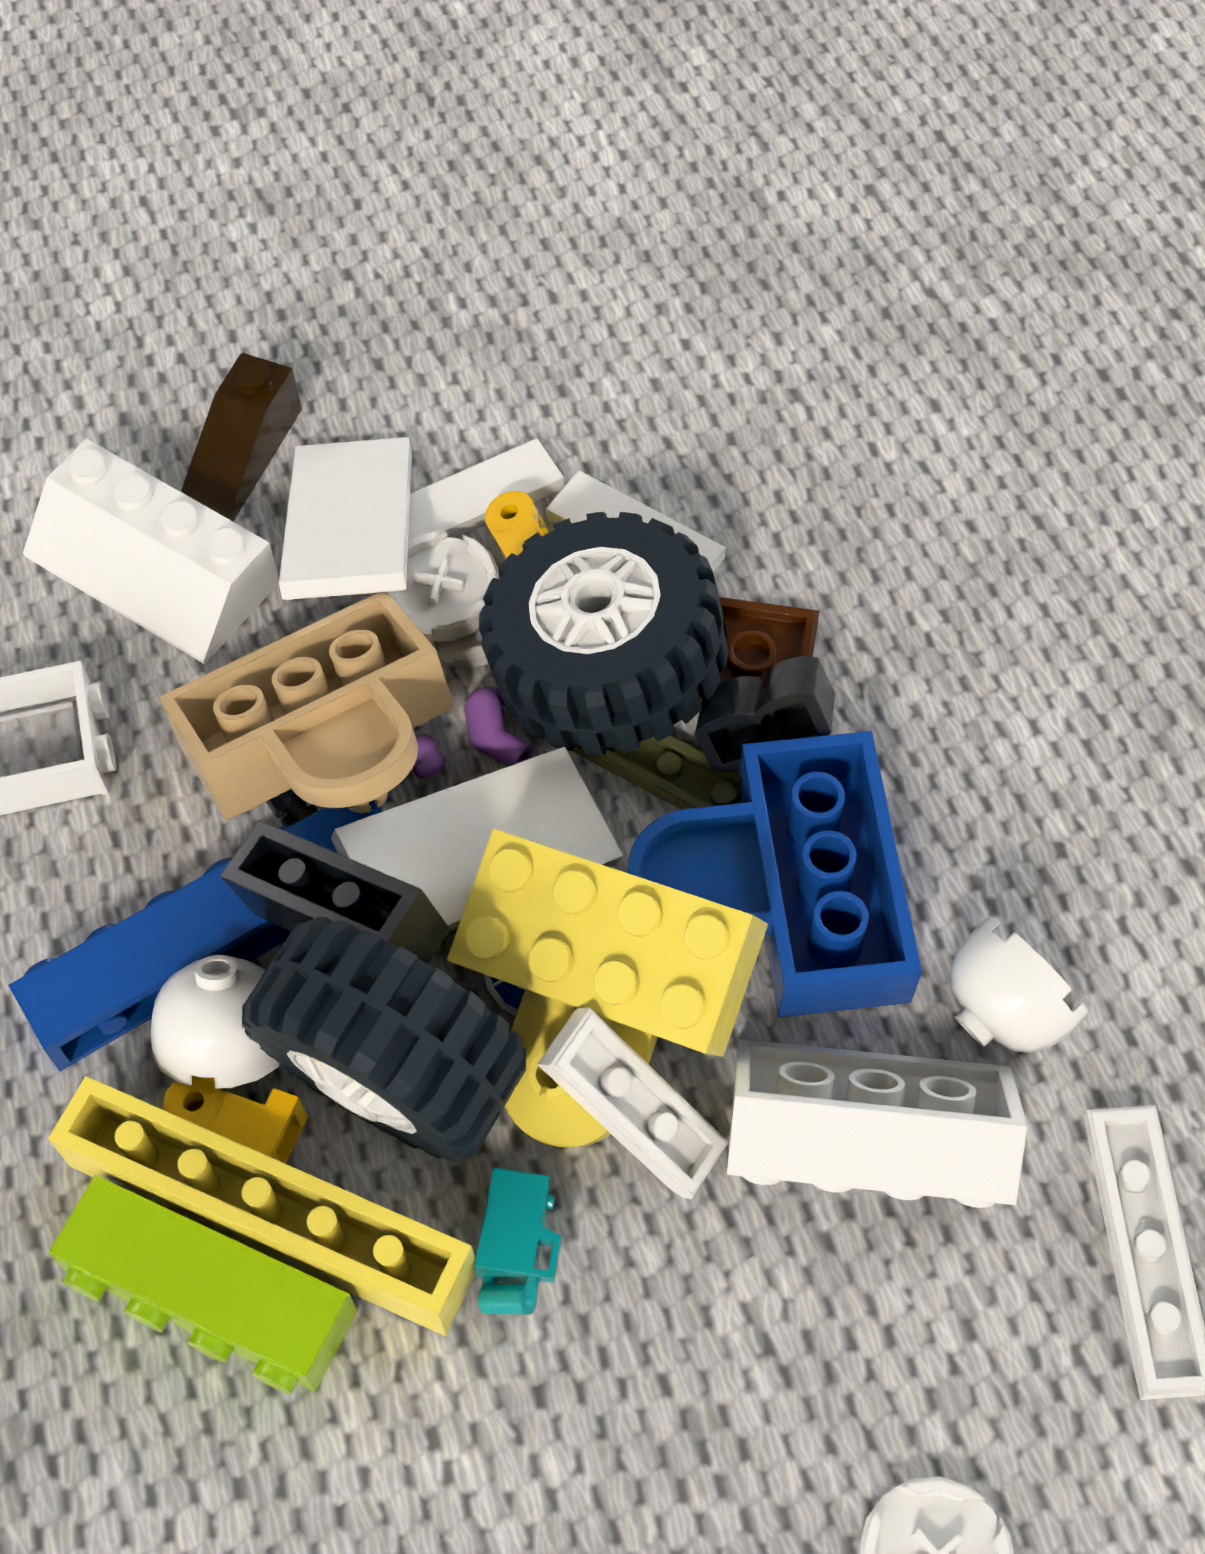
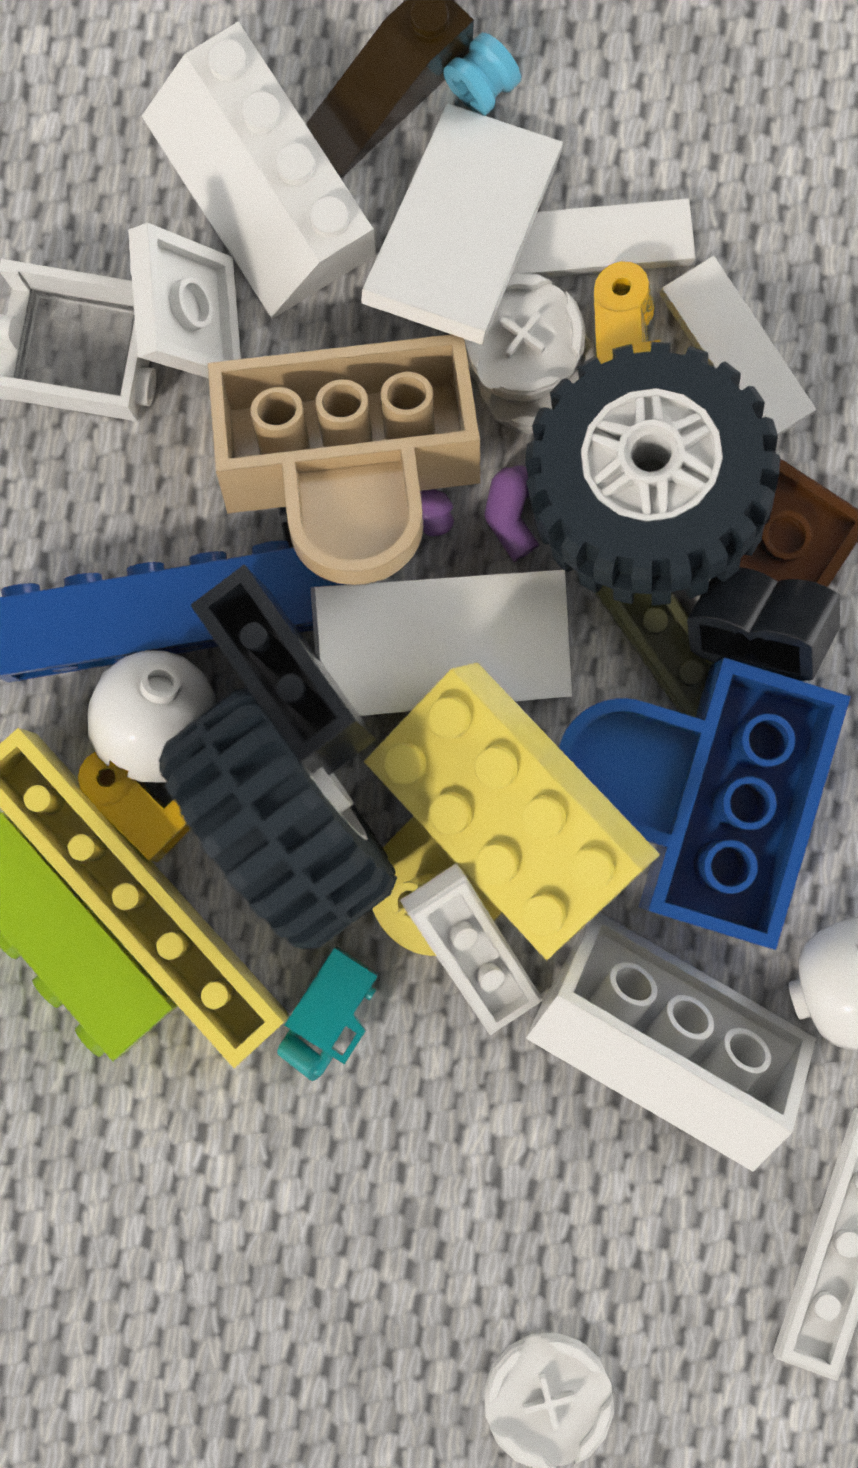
camera: 20 degrees right, 25 degrees up
(113, 662) = (182, 301): none -> white plate
(317, 412) = (482, 74): none -> medium azure wheel

